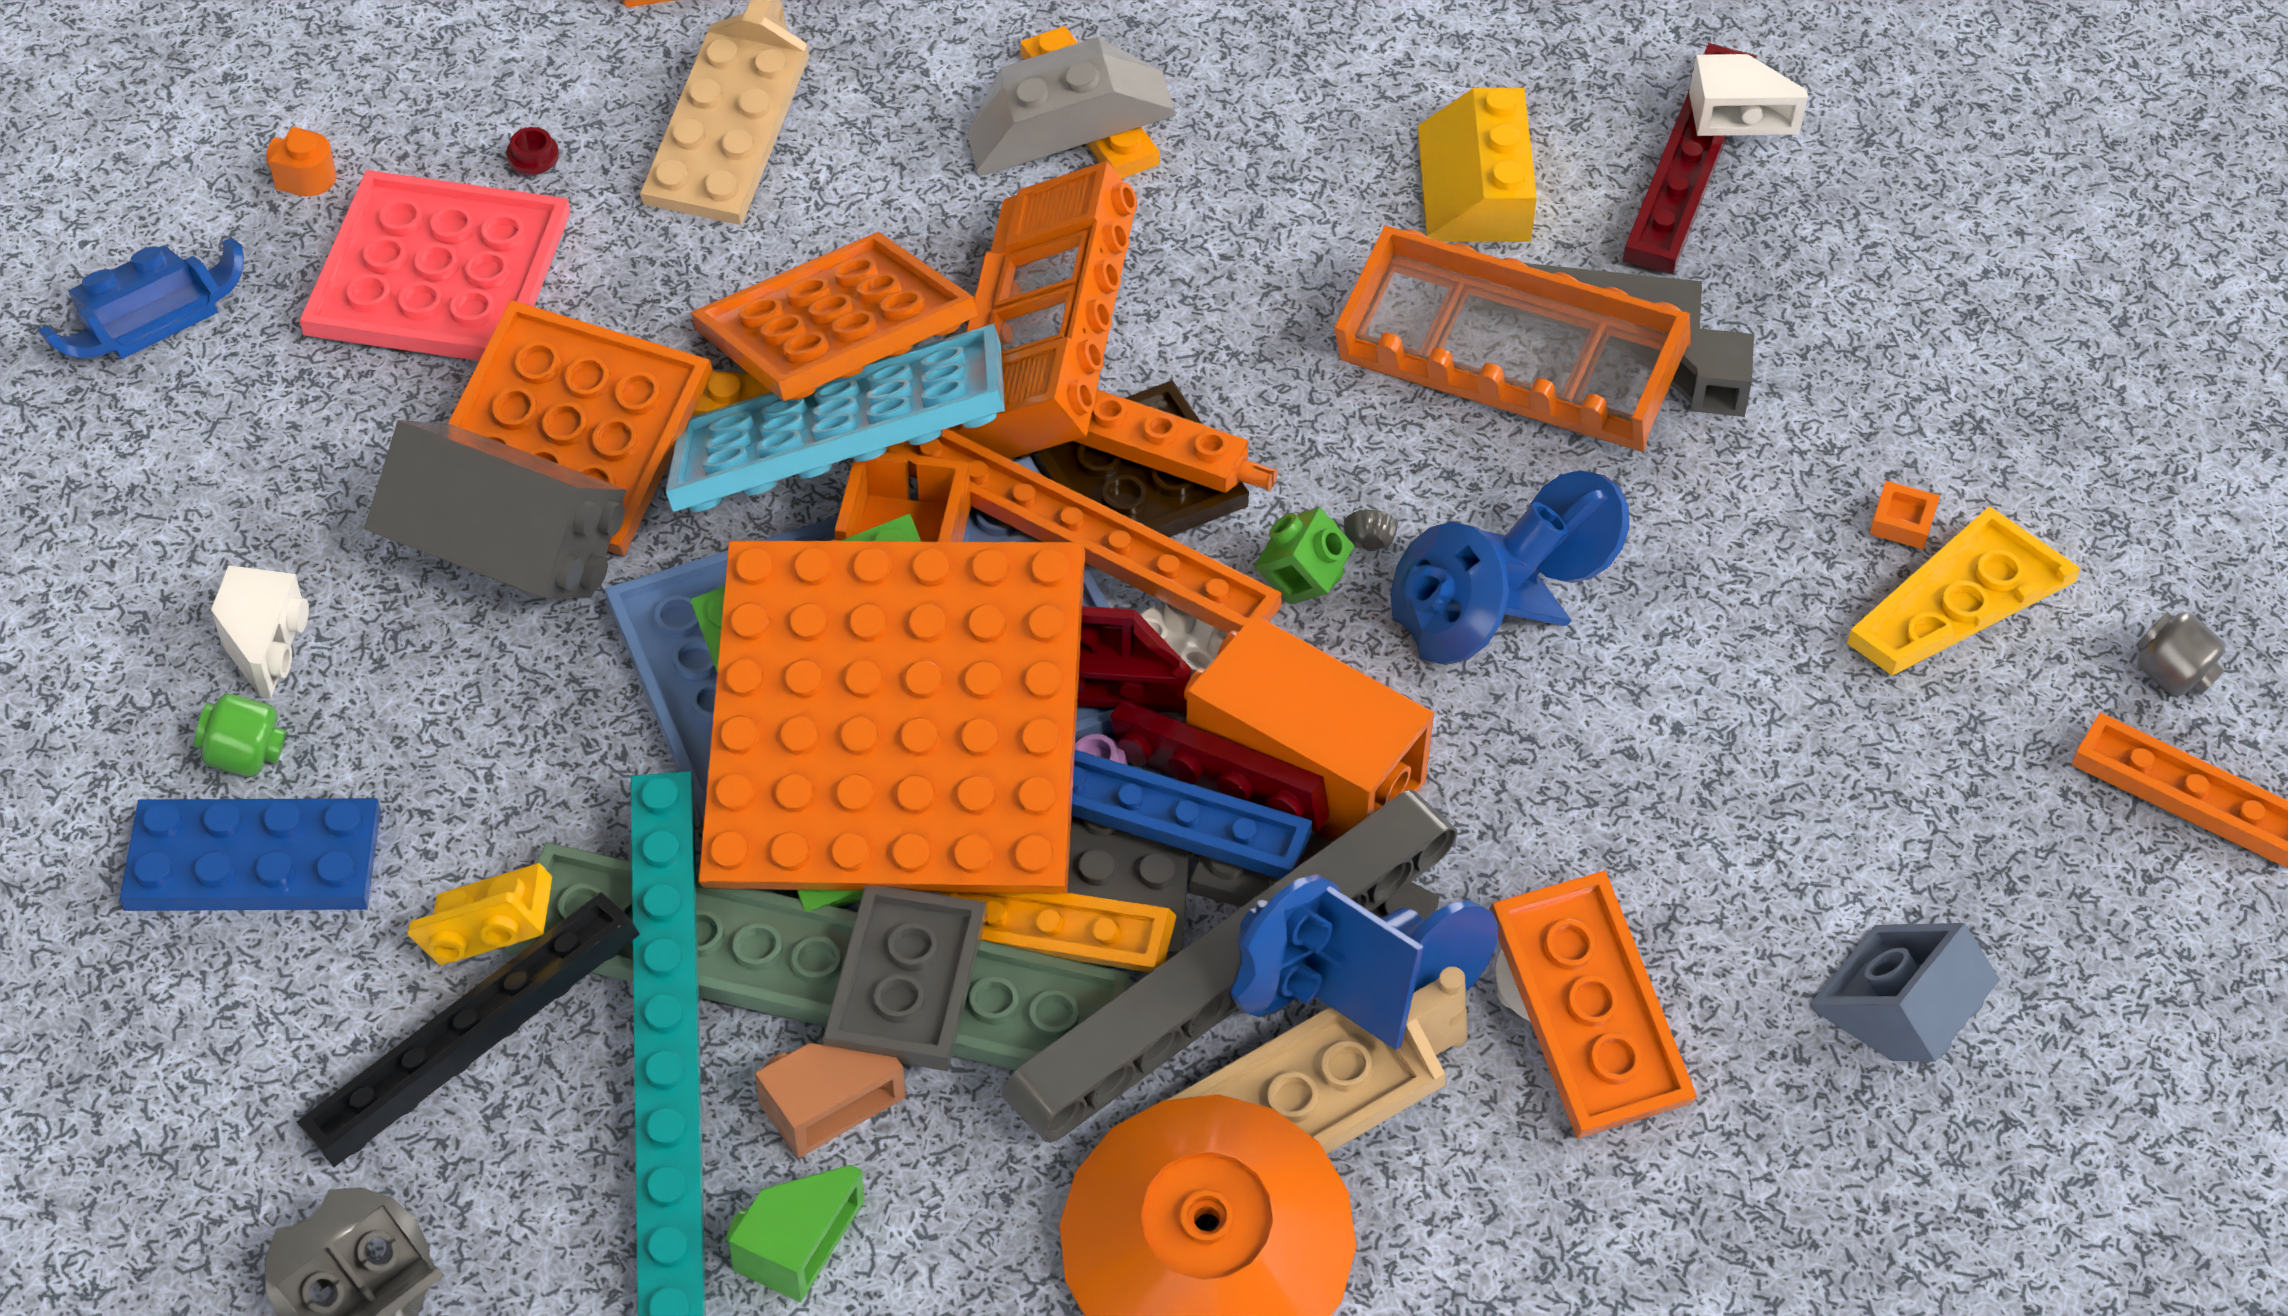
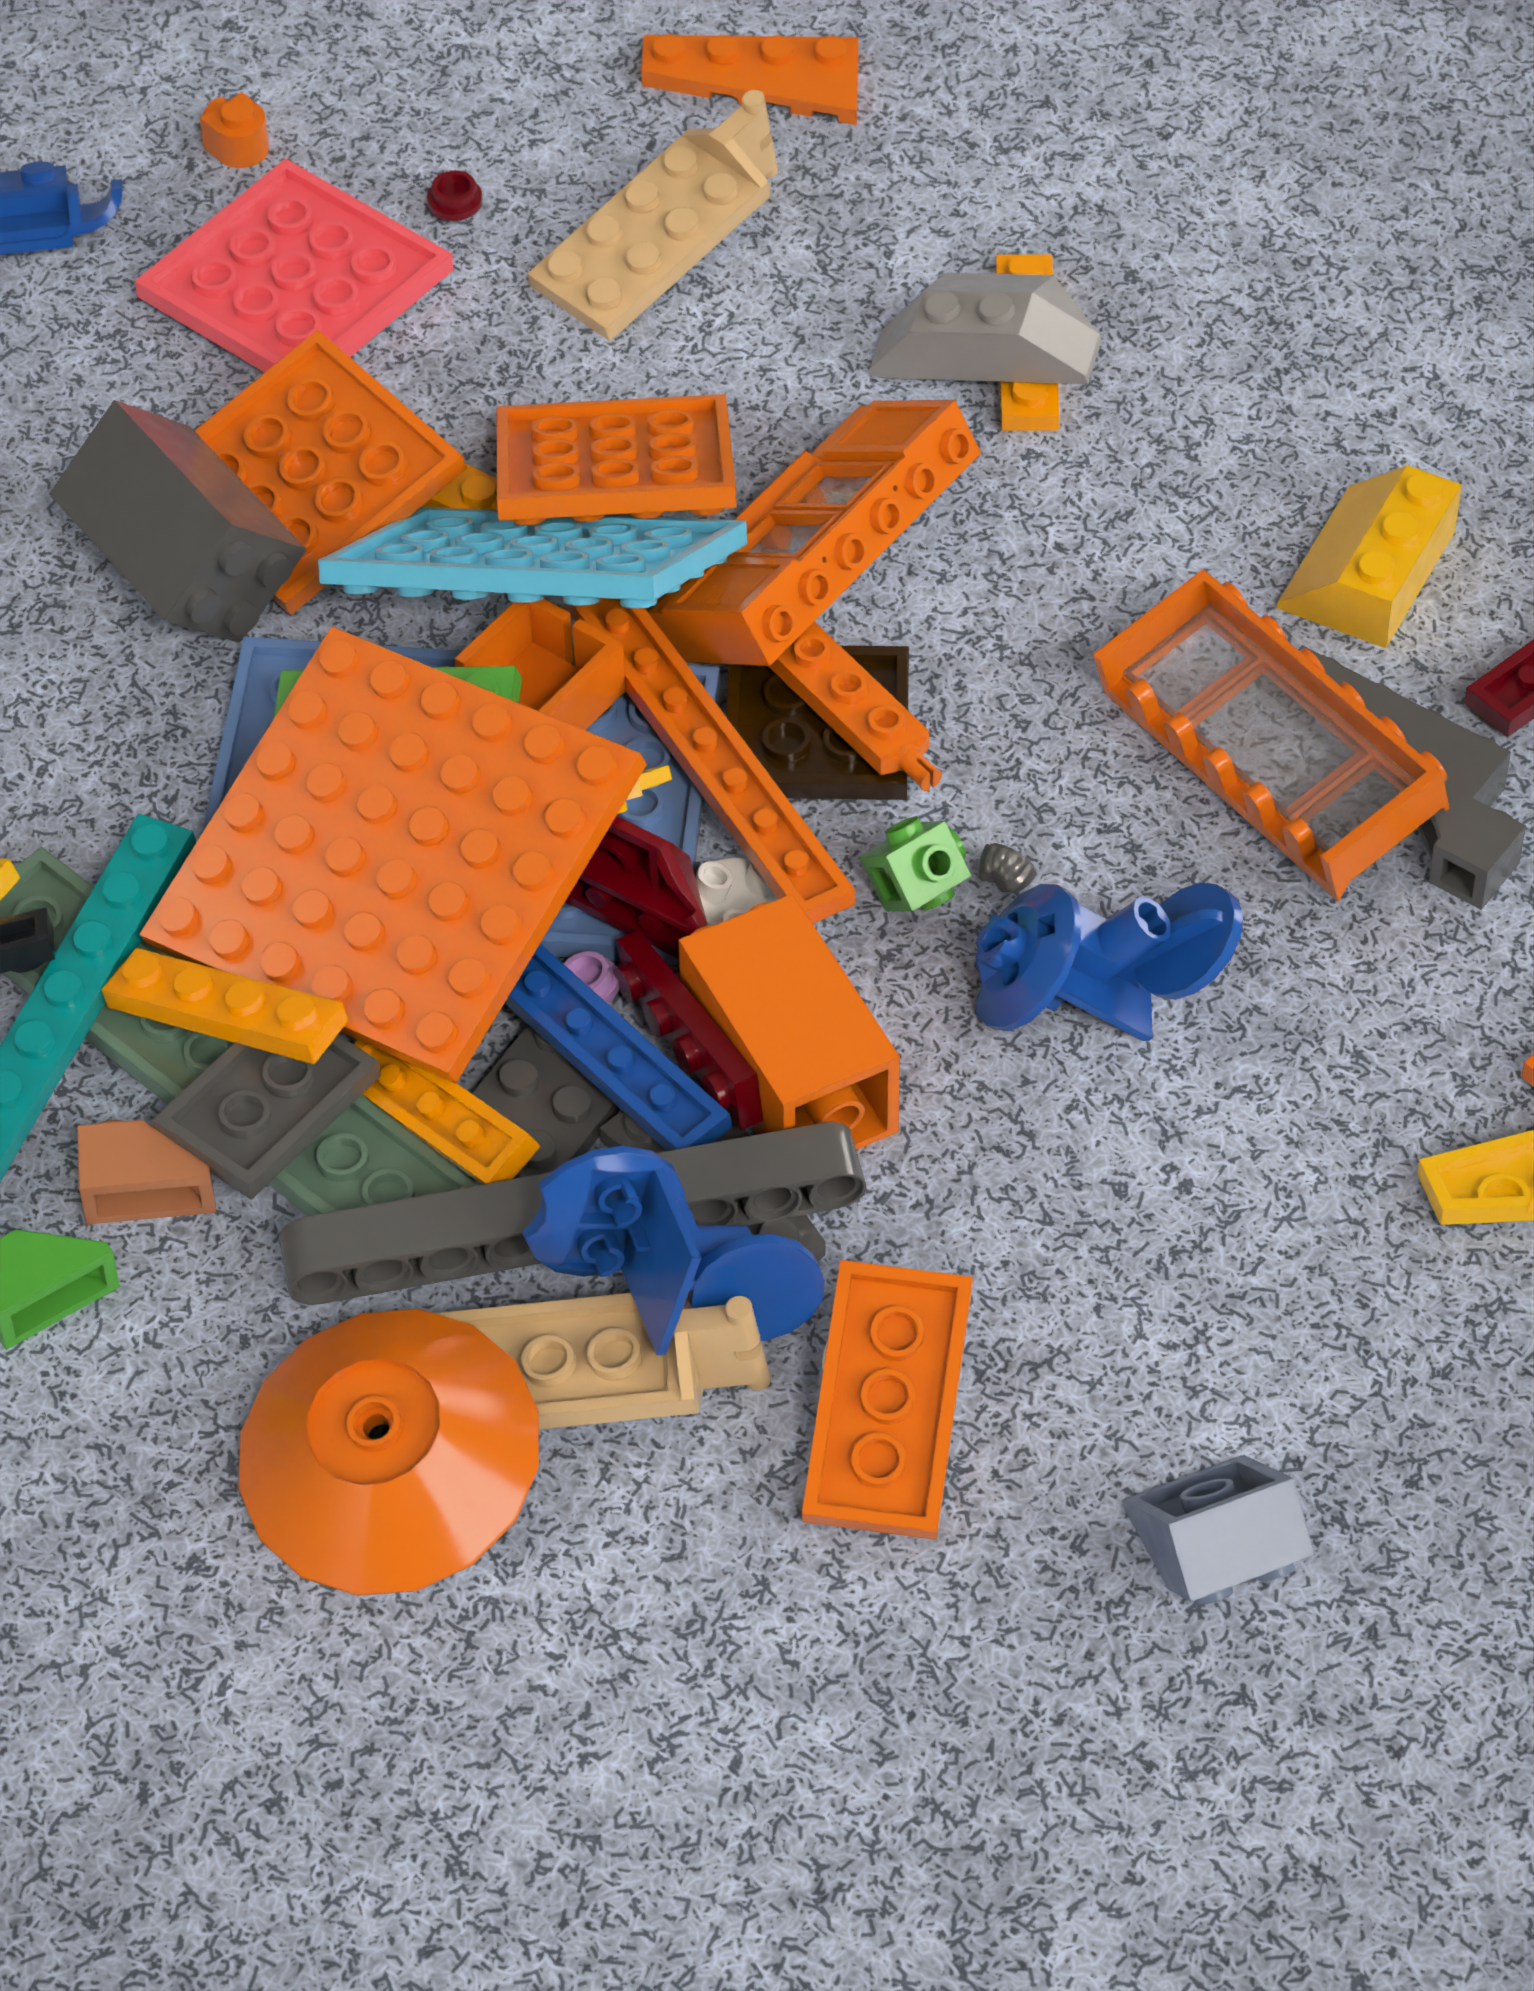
camera: 30 degrees right, 0 degrees up
(820, 910) = (225, 1005): none -> light orange plate

